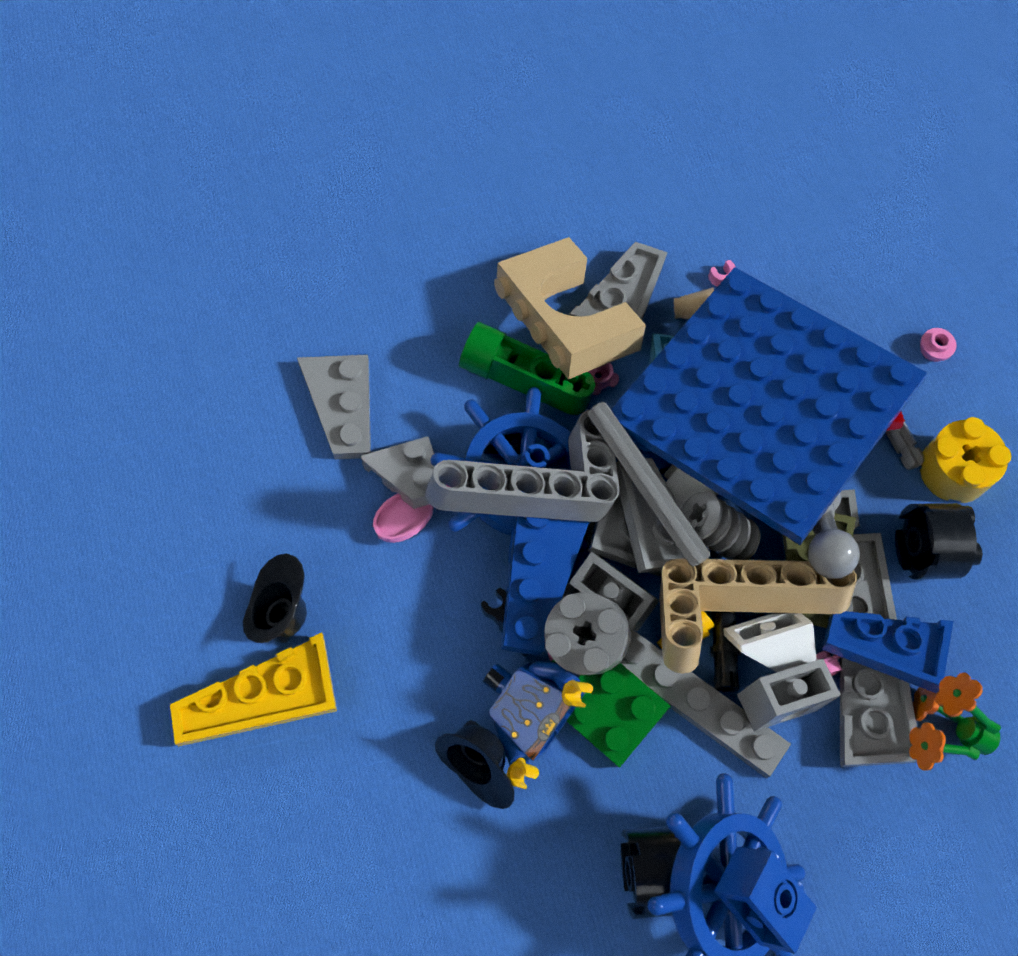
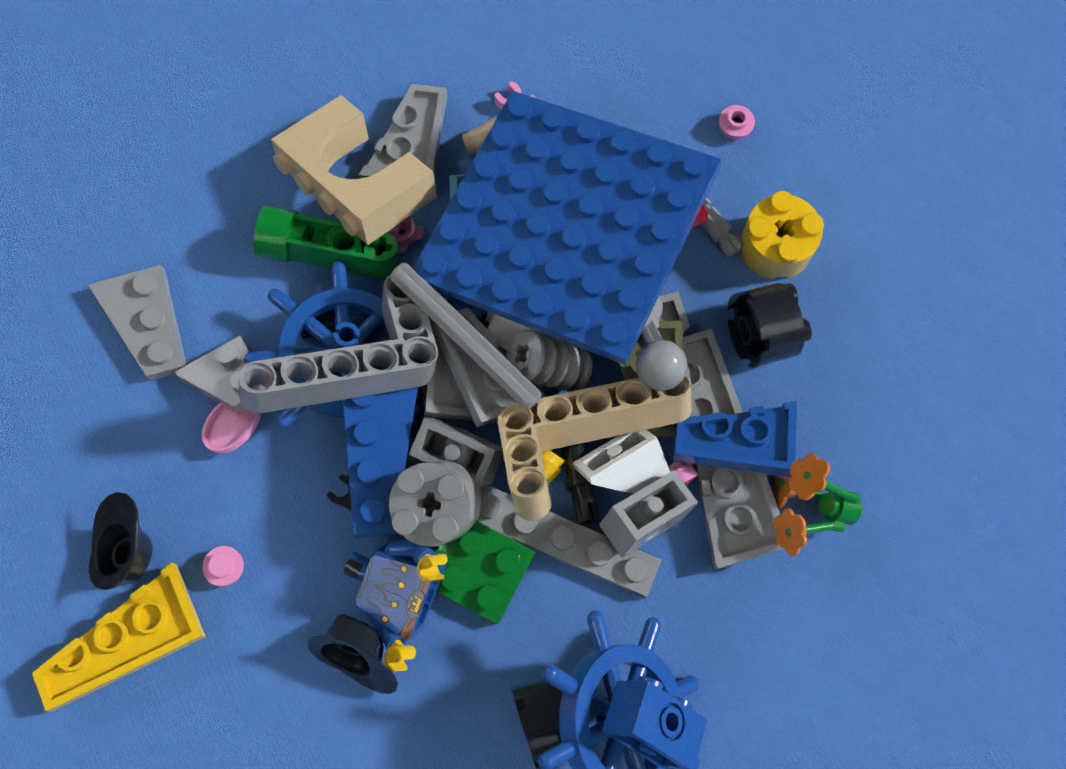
camera: 10 degrees left, 5 degrees up
(367, 648) = (223, 566): none -> bright pink plate

